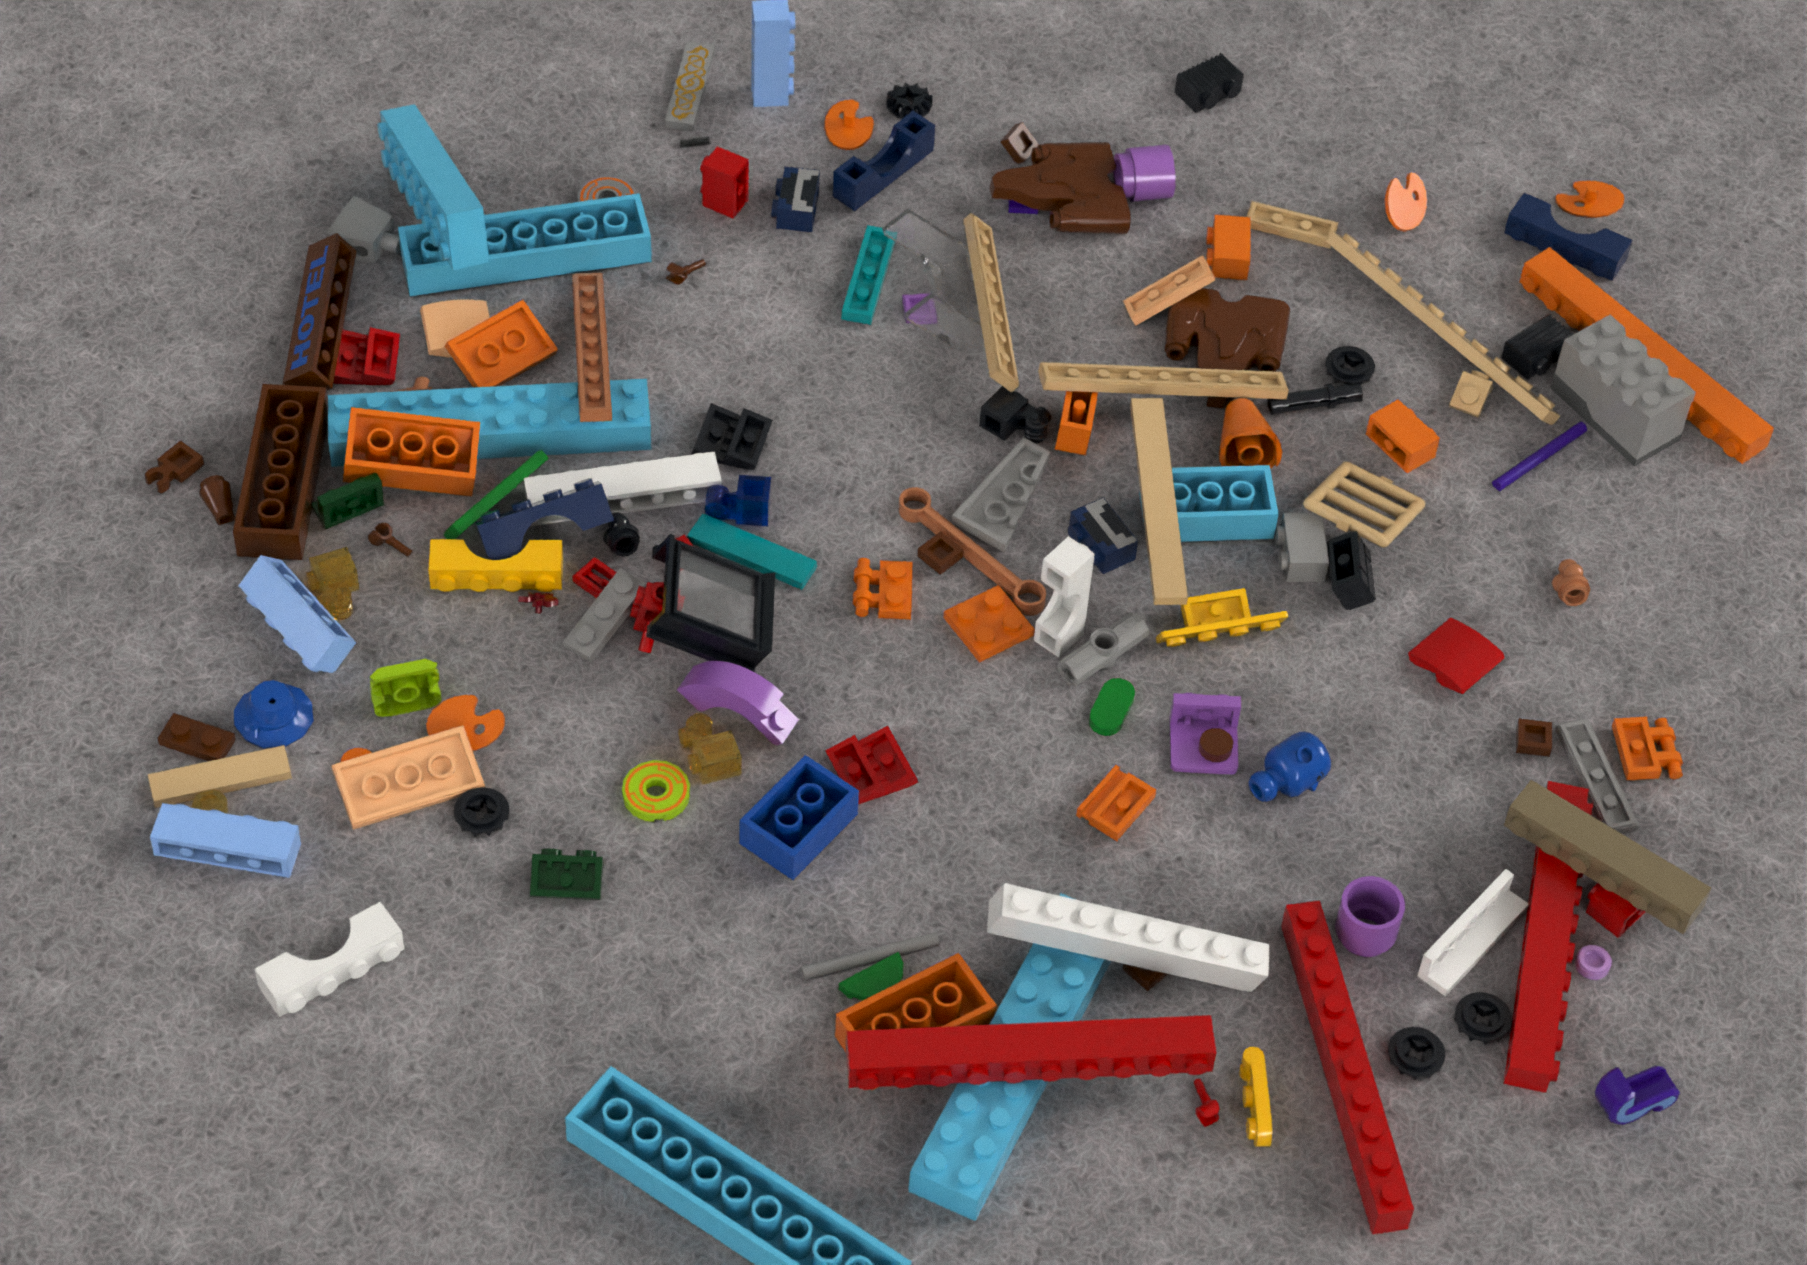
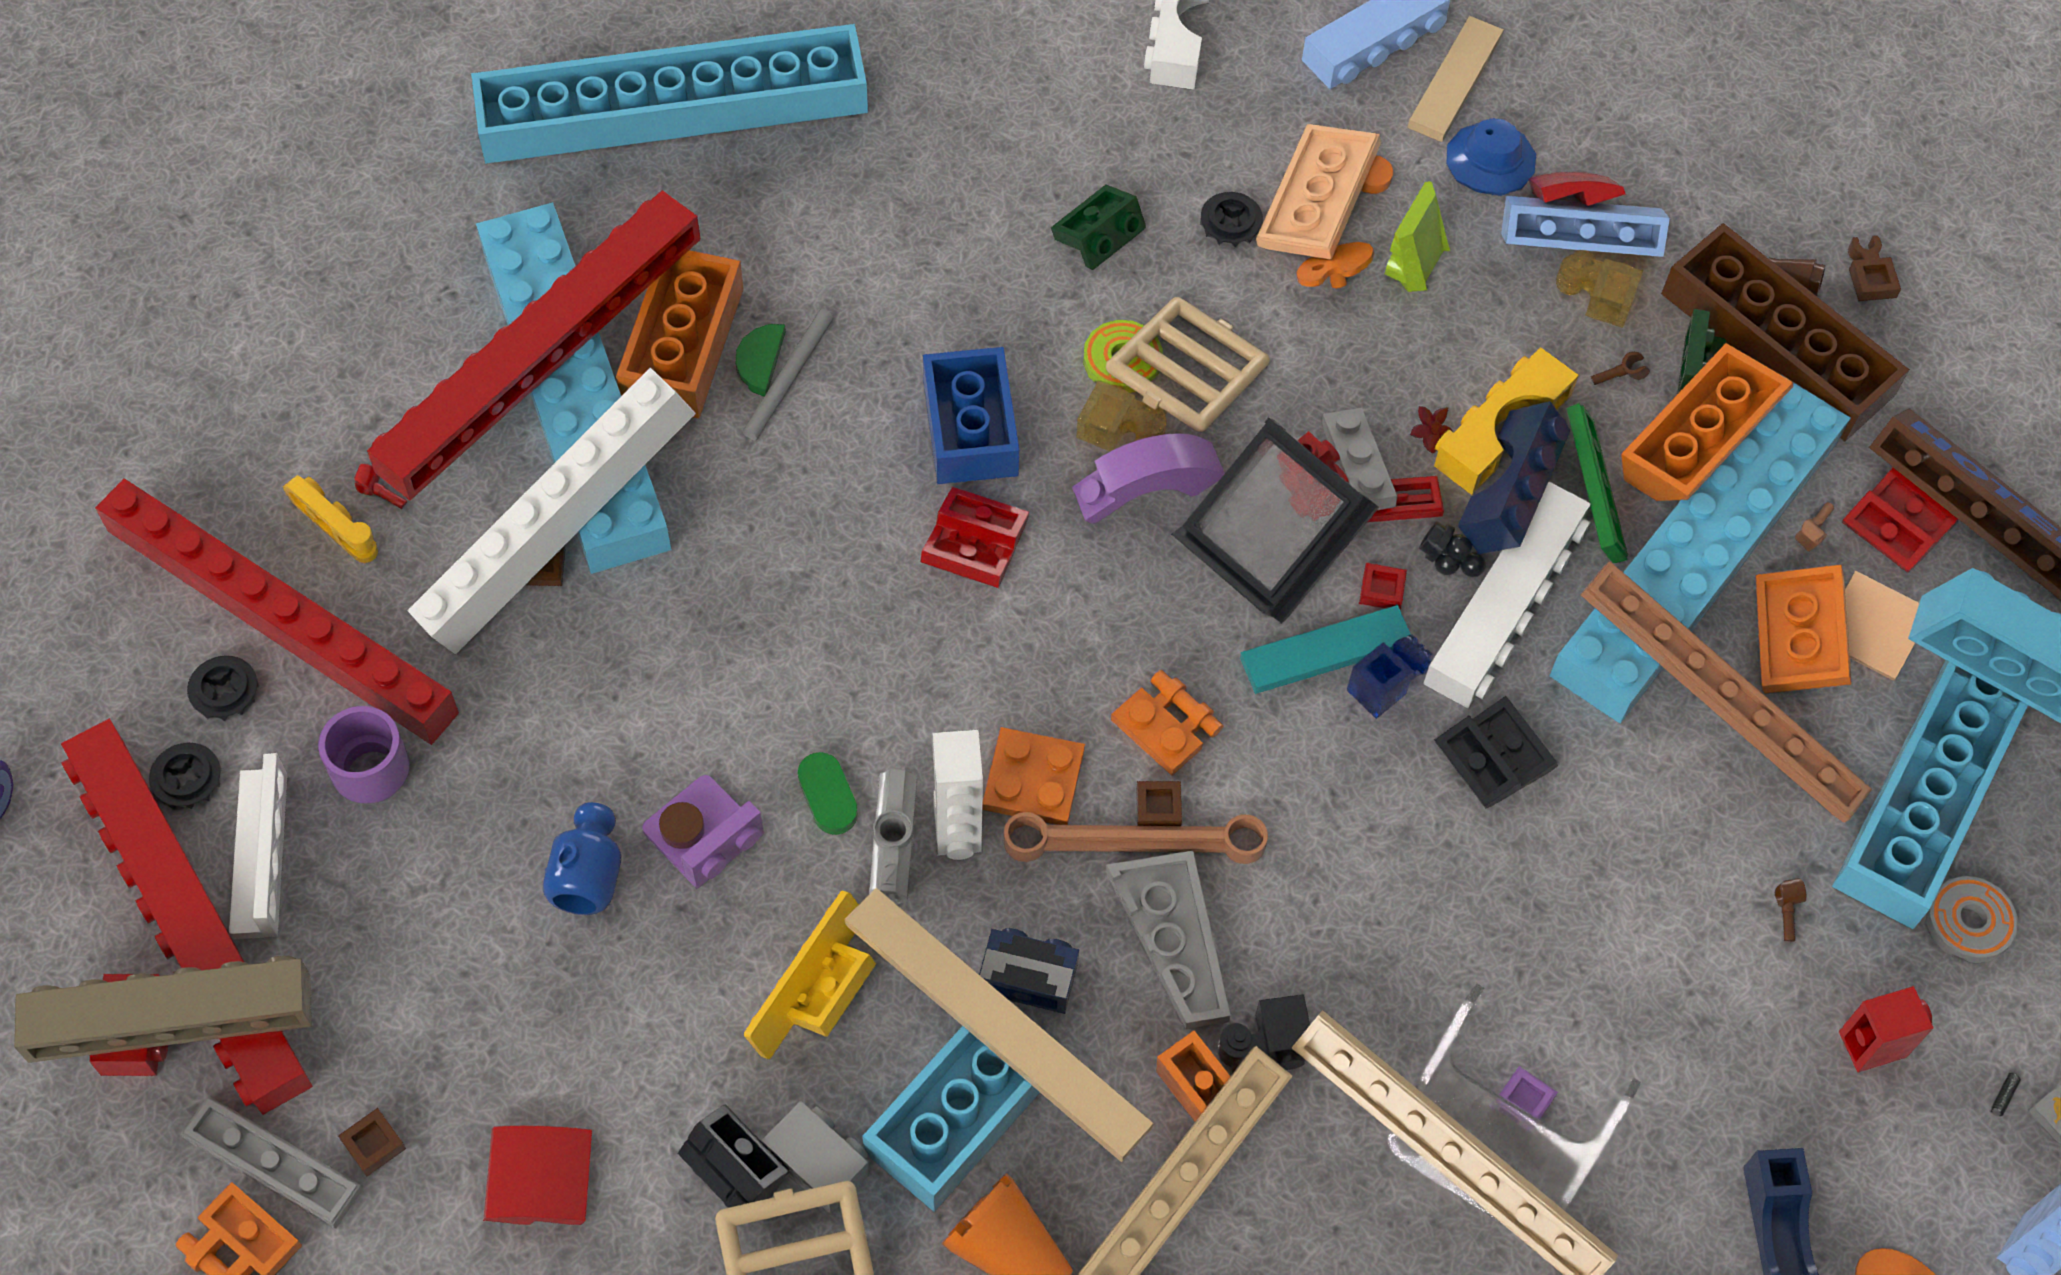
camera: 135 degrees right, 10 degrees up
(196, 738) = (1514, 89): reddish brown plate -> none
(211, 800) = (1428, 52): clear yellow tile -> none
(271, 632) = (1584, 186): none -> red slope
(610, 716) = (1157, 397): none -> tan bar
(797, 199) = (1806, 1106): brick -> none
(868, 276) = (1609, 1072): teal plate -> none
(1116, 803) = (720, 689): orange plate -> none
(1593, 962) = (119, 932): lavender tile -> none

